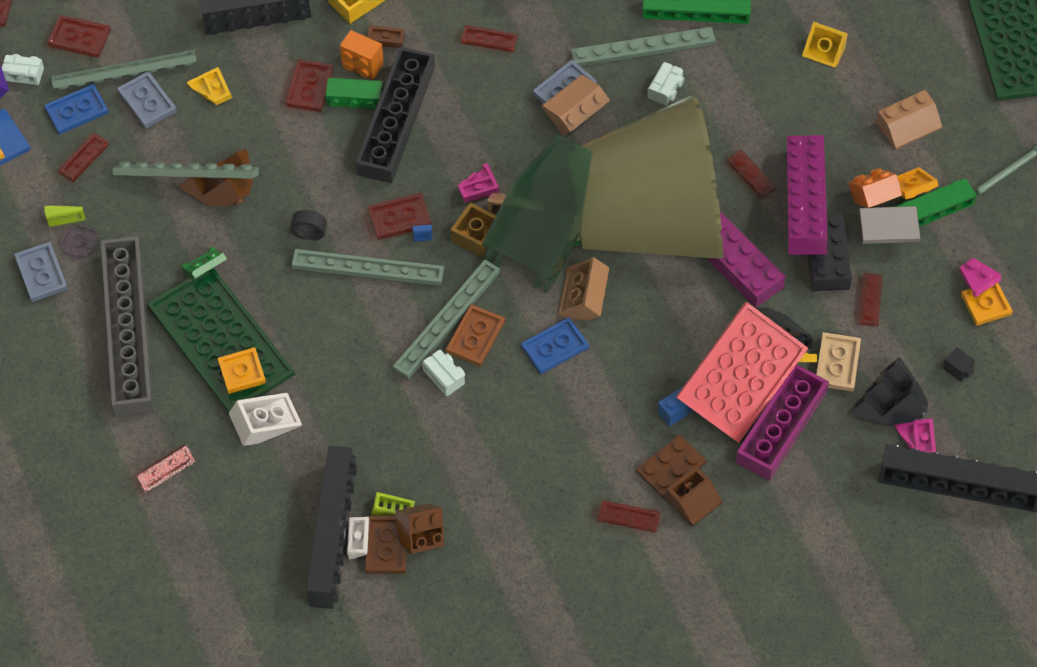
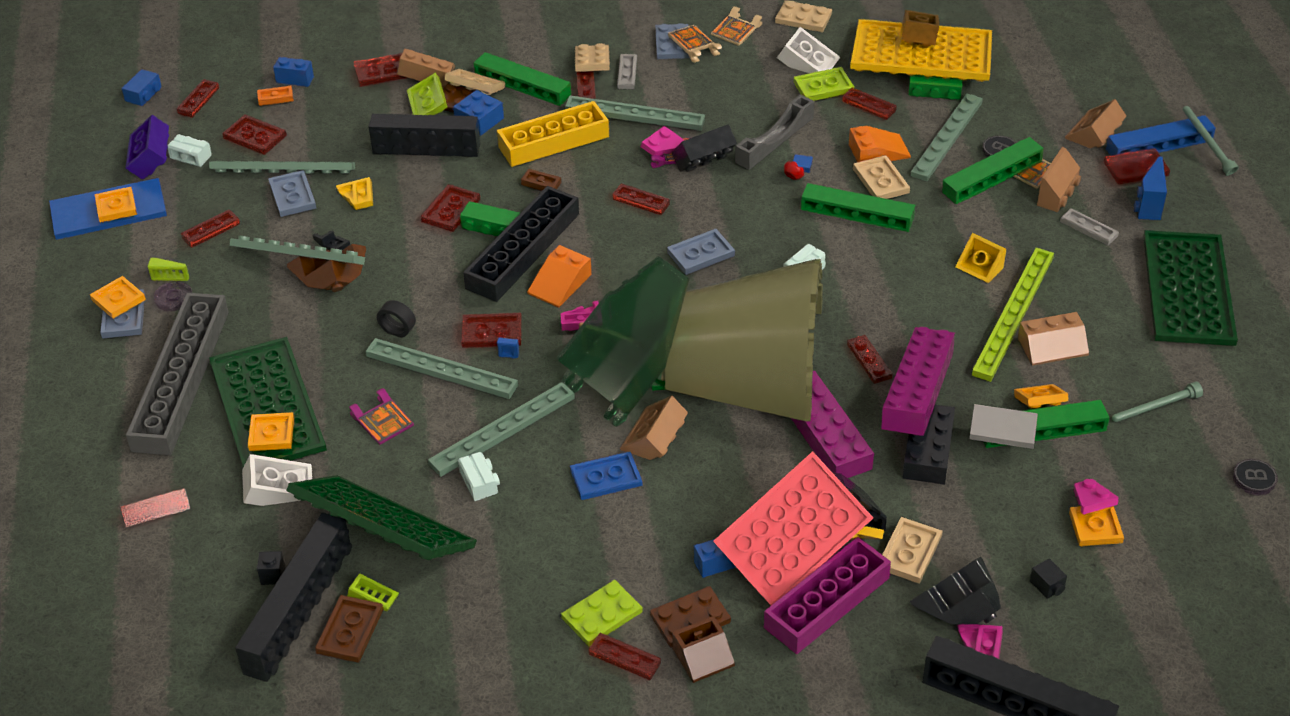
camera: 15 degrees right, 15 degrees down
(32, 257) = (117, 297): none -> light orange plate
(76, 109) = (224, 190): blue tile -> none
(204, 263) = (272, 334): green plate -> none
(210, 149) = (331, 241): none -> black slope
(296, 504) = (270, 567): none -> black brick
(334, 333) = (384, 420): none -> flag
(357, 537) = (320, 613): white slope -> none
(361, 55) = (508, 188): orange brick -> none
(378, 435) = (381, 516): none -> dark green plate
(420, 527) = (390, 617): reddish brown slope -> none
(443, 144) = (560, 276): none -> orange slope
(472, 229) = (548, 350): pearl gold brick -> none
(475, 335) = (525, 449): dark orange plate -> none
(575, 104) = (706, 263): medium nougat slope -> none
(595, 479) = (602, 612): none -> lime plate
(643, 46) = (794, 232): sand green plate -> none
(867, 99) = (1012, 315): none -> lime plate
(870, 299) = (965, 498): clear red plate -> none
(874, 188) = (993, 390): orange brick -> none

